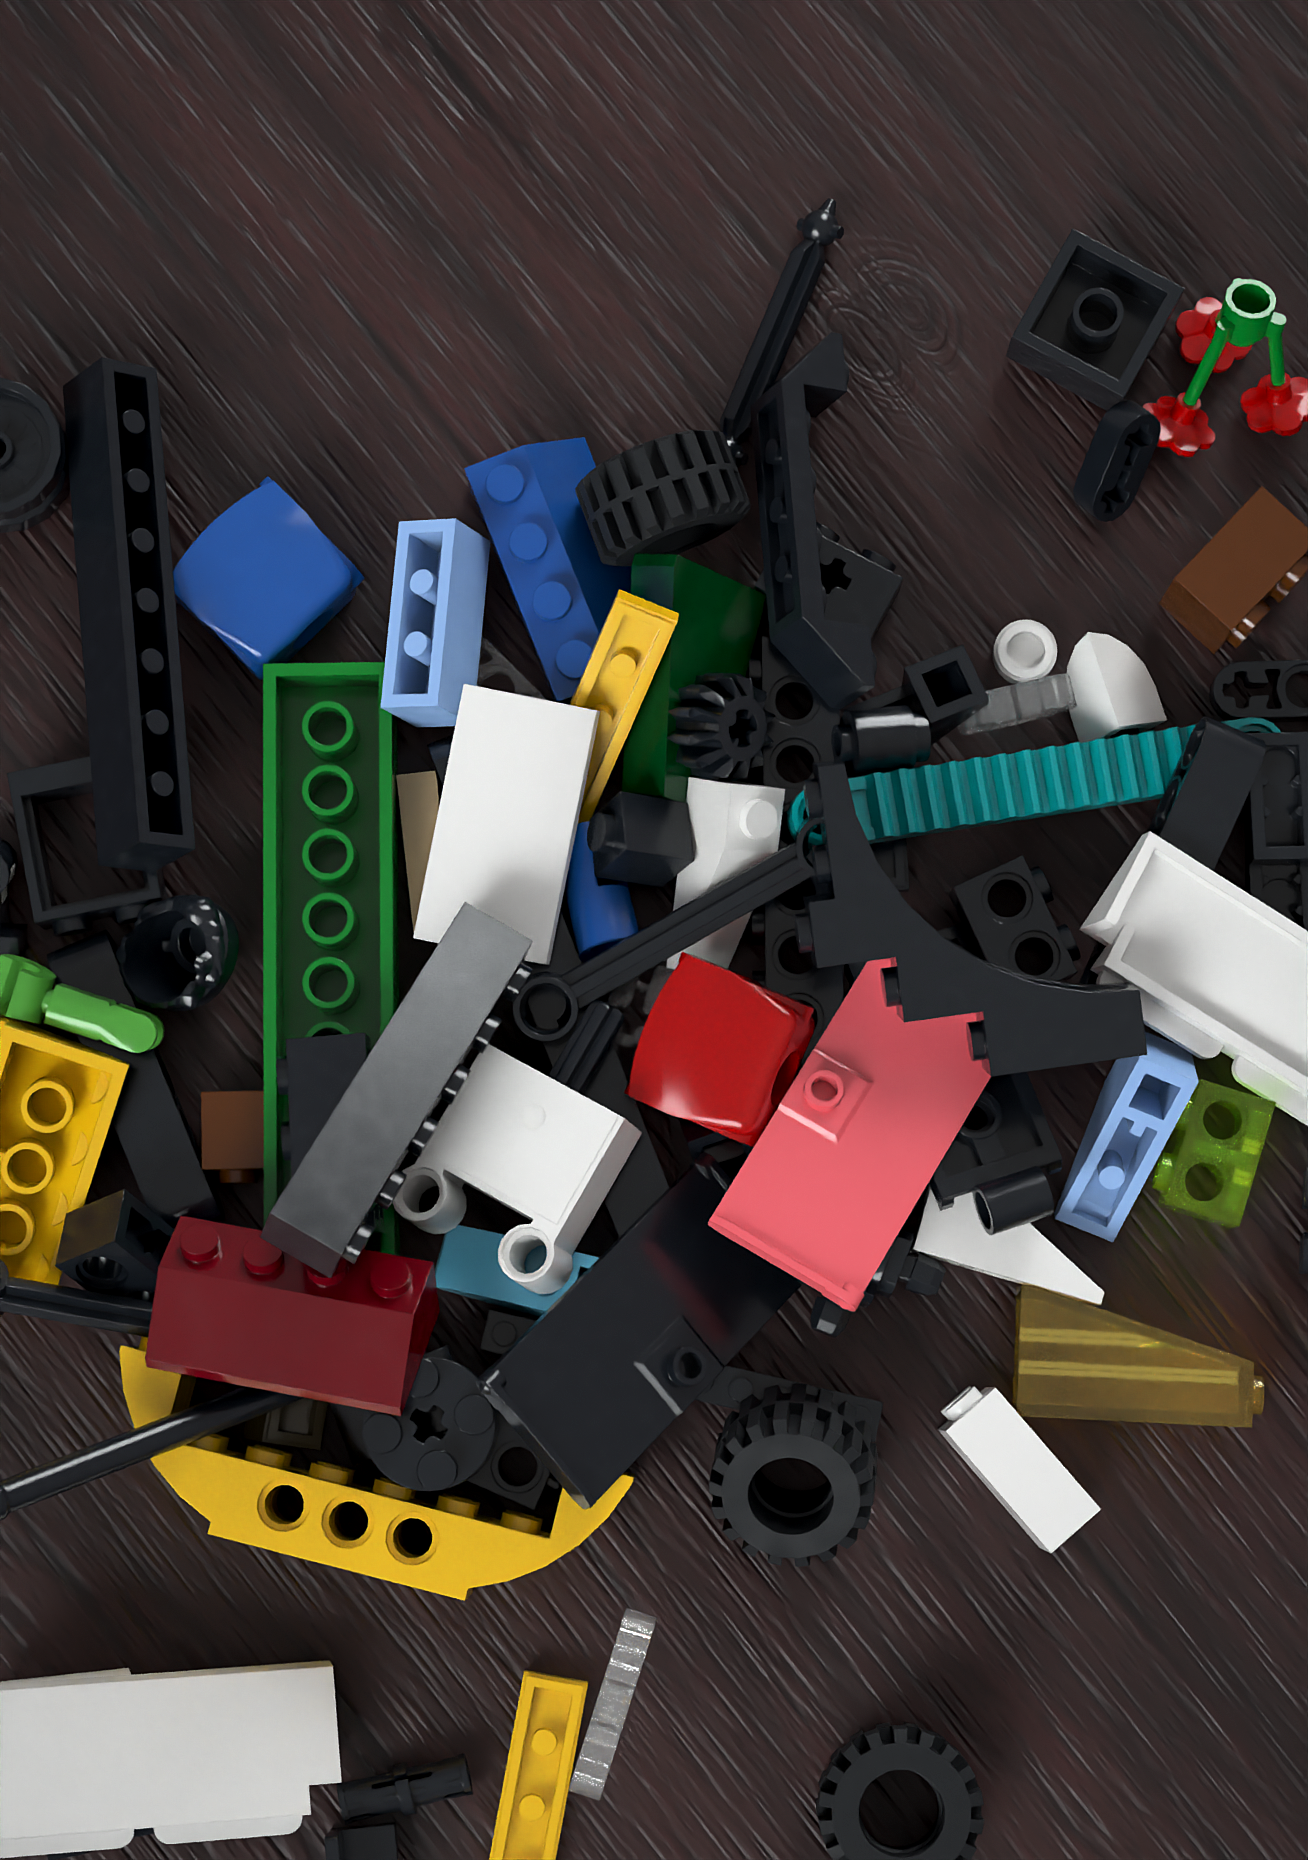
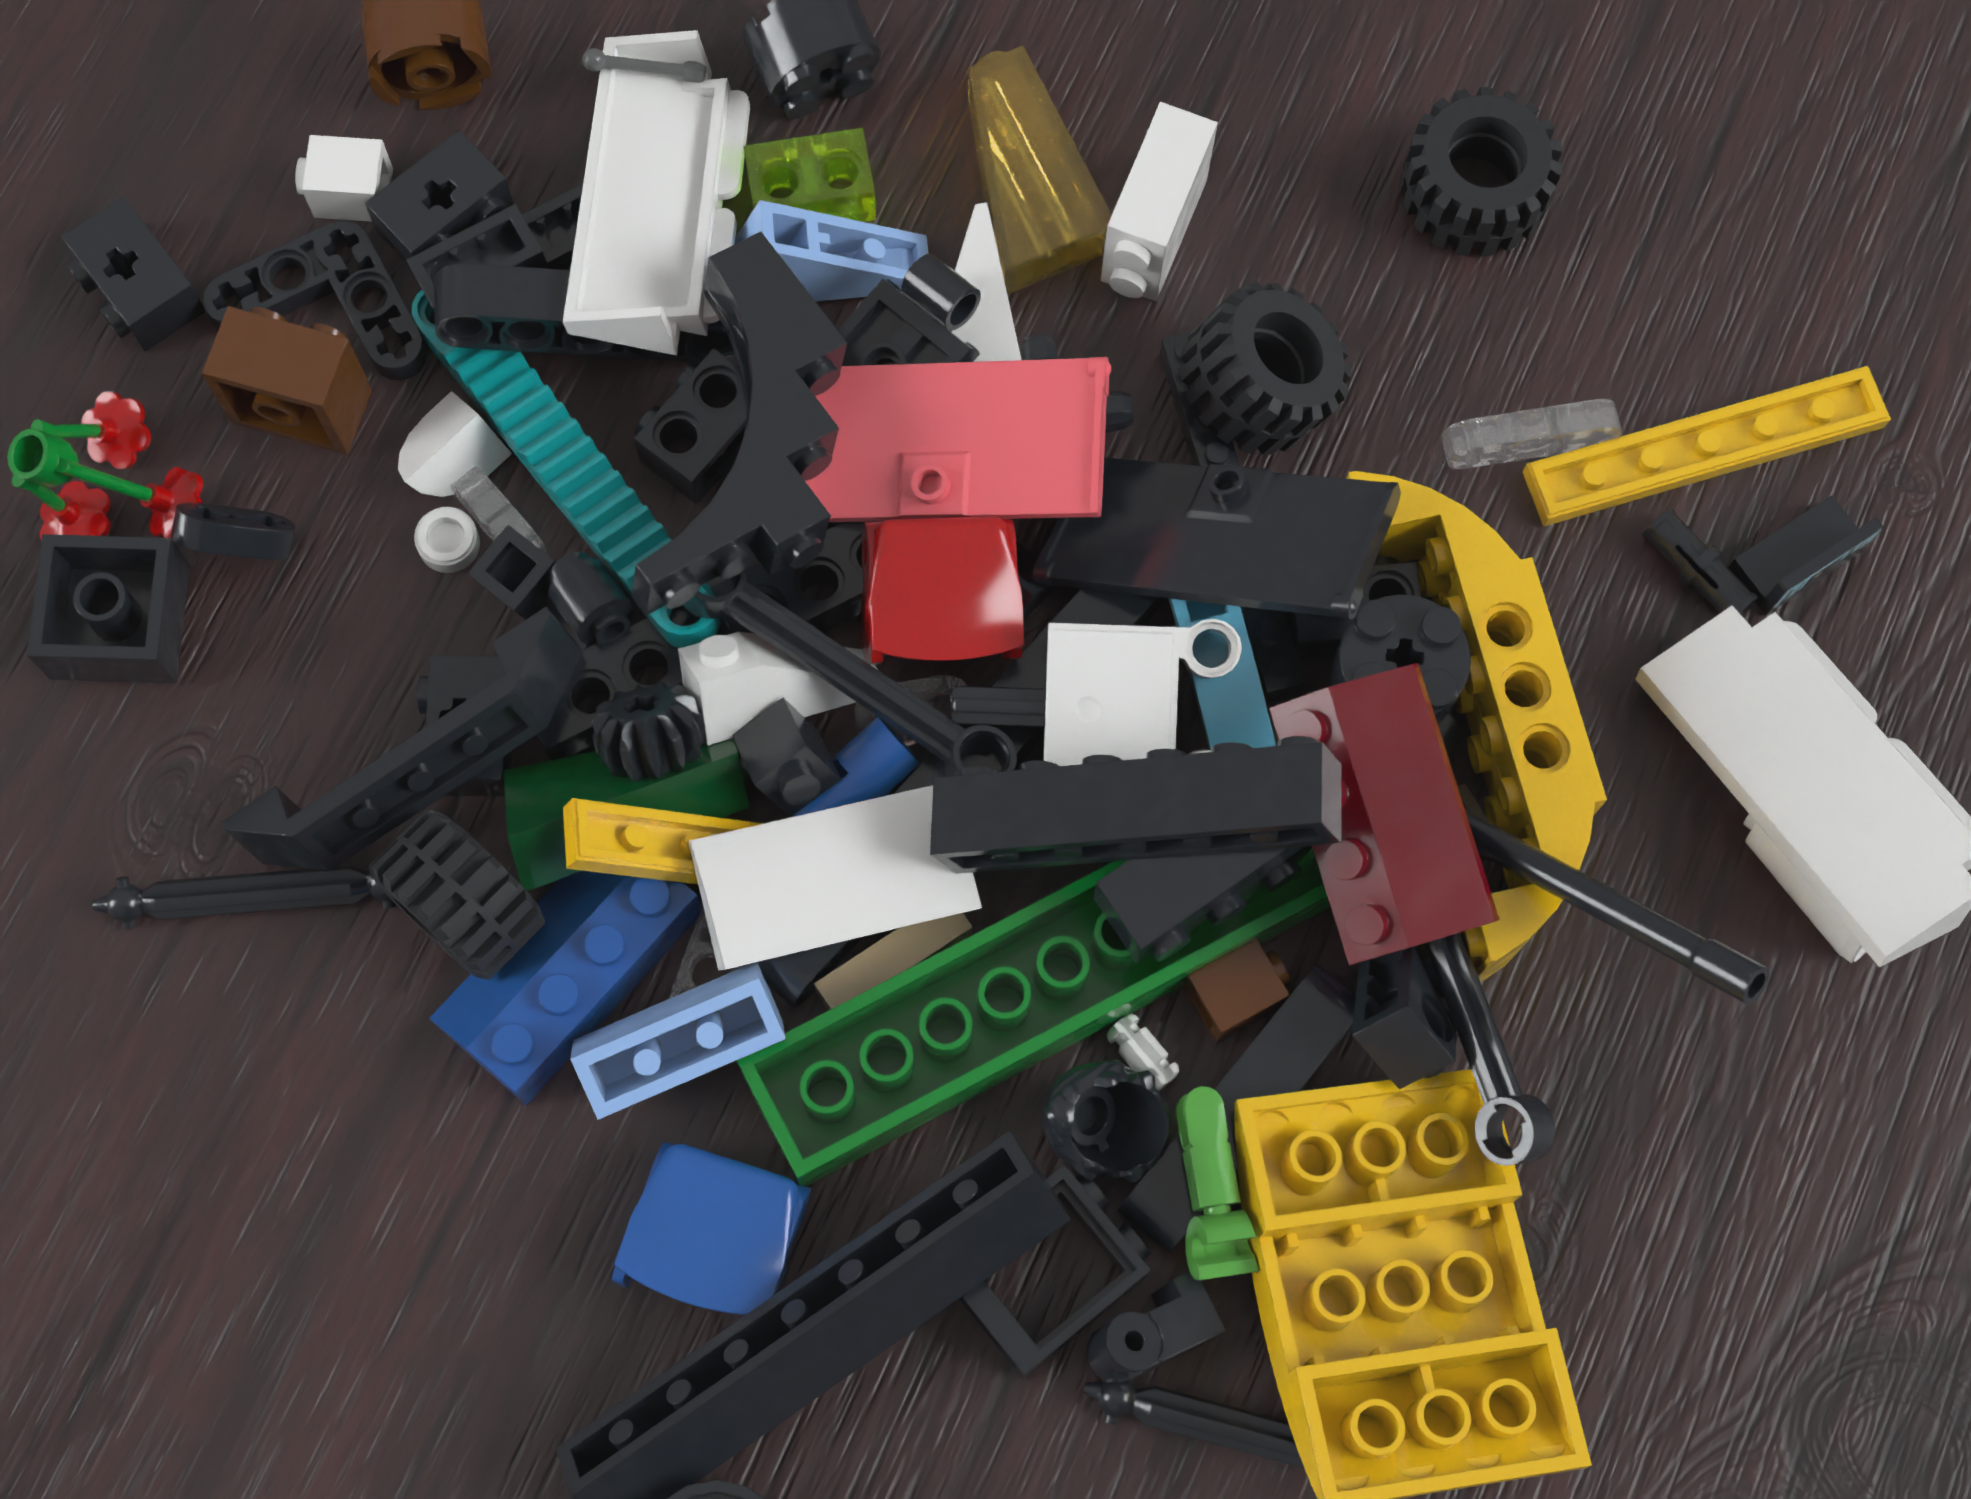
camera: 125 degrees left, 10 degrees down
(228, 1026) = (1142, 1050): none -> white piece

